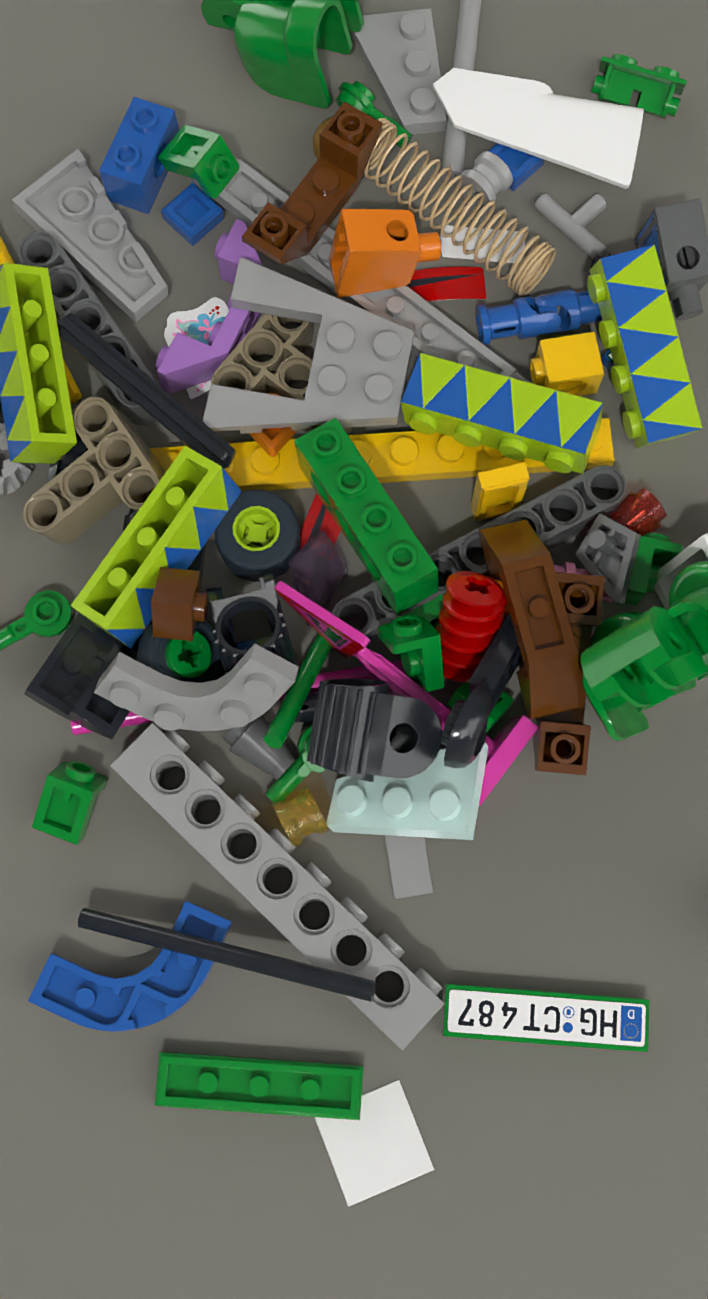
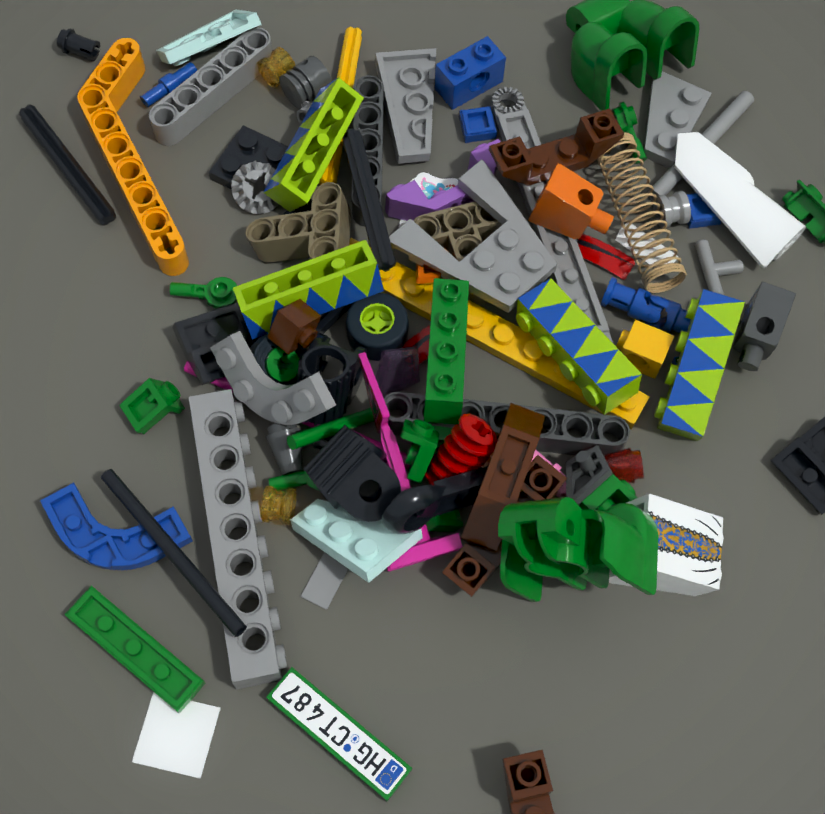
camera: 30 degrees right, 10 degrees down
(201, 157) = (503, 93): green bracket -> none
(499, 491) = (542, 388): yellow tile -> none

